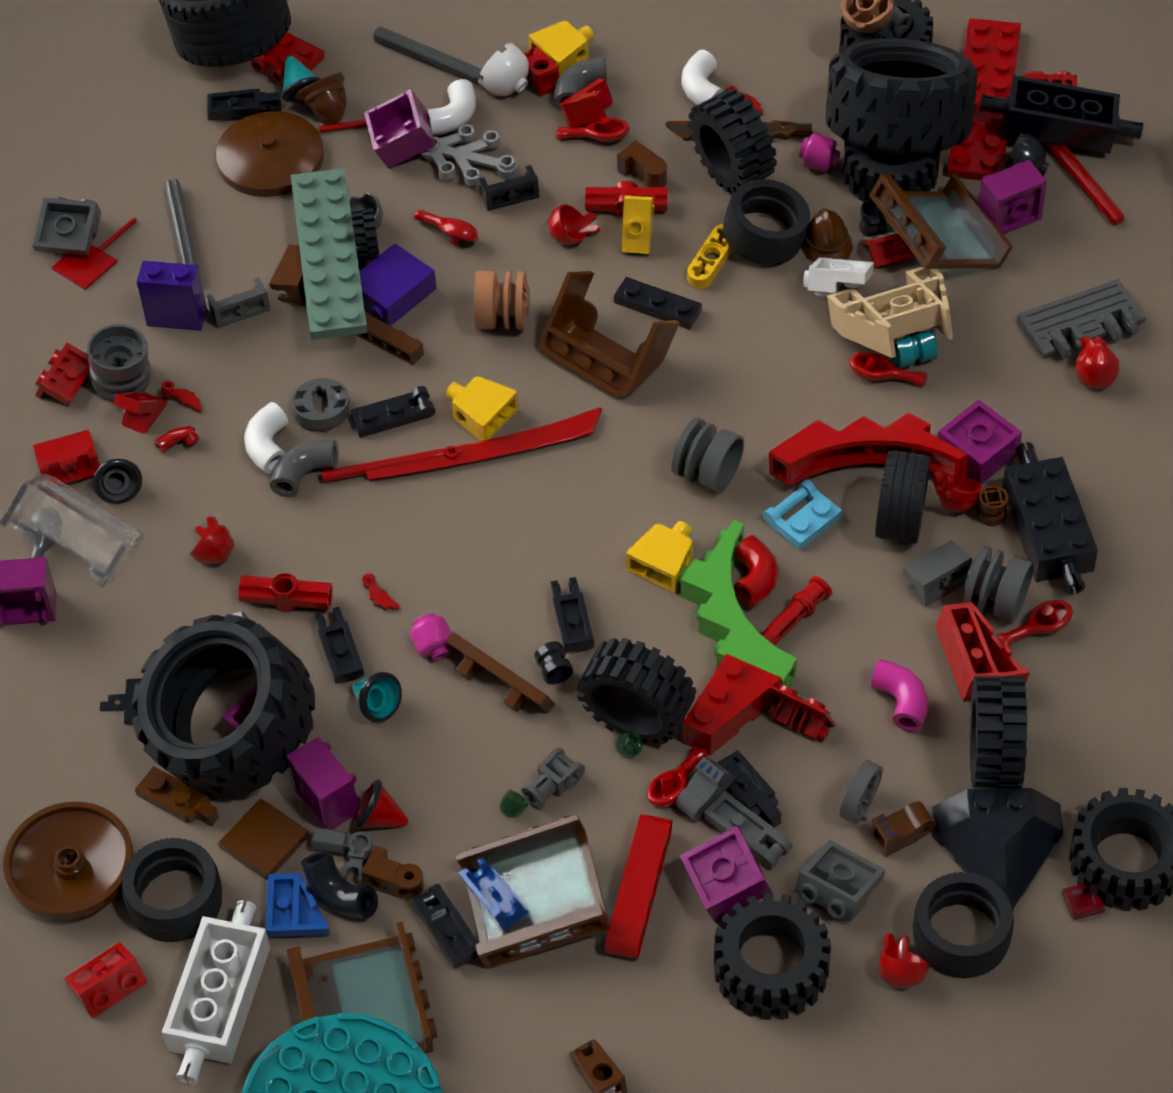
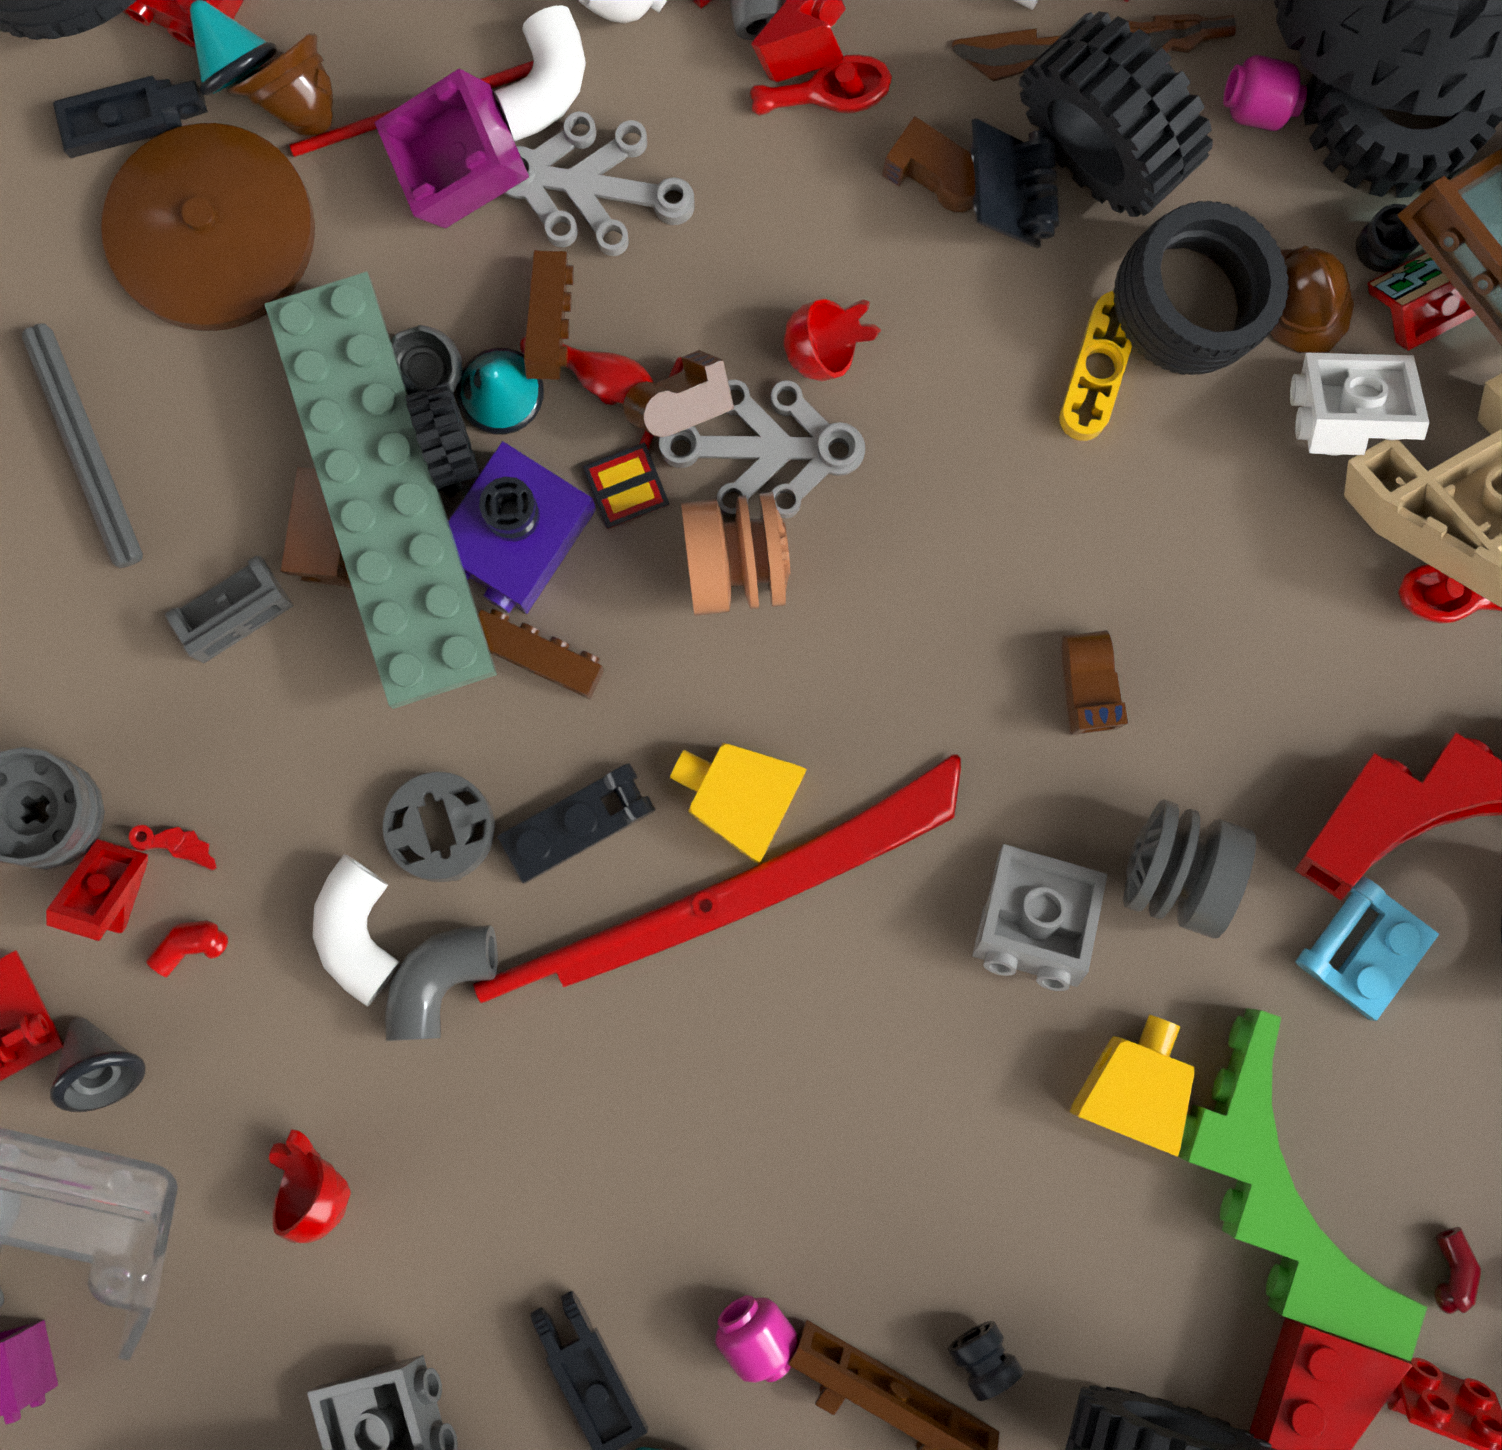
camera: 15 degrees left, 30 degrees up
(172, 295) = (97, 638): dark purple brick -> none
(298, 592) = (432, 1281): red piece -> none
(378, 595) = (635, 1245): red piece -> none
(391, 263) = (516, 517): none -> black wheel
(399, 229) = (496, 392): none -> teal hat
(431, 199) = (546, 315): none -> reddish brown piece
(457, 277) = (628, 481): none -> piece
(496, 239) = (681, 399): none -> leg
(509, 191) = (689, 256): black hinge -> none
(534, 269) = (773, 447): none -> light grey plant
(572, 617) = (997, 1248): black hinge -> none
(575, 344) = (934, 636): reddish brown windscreen -> none
(613, 197) = (916, 253): red piece -> none
(626, 475) = (1040, 918): none -> light grey plate
(637, 224) = (955, 324): yellow brick -> none
(657, 302) = (1018, 492): black plate -> none
(677, 383) = (1092, 683): none -> reddish brown leg
(679, 173) = (1015, 183): none -> black hinge
(762, 572) = (1323, 1102): red cylinder -> none
(801, 605) = (1403, 1158): red pin -> none
(825, 663) = (1464, 1274): none -> dark red arm

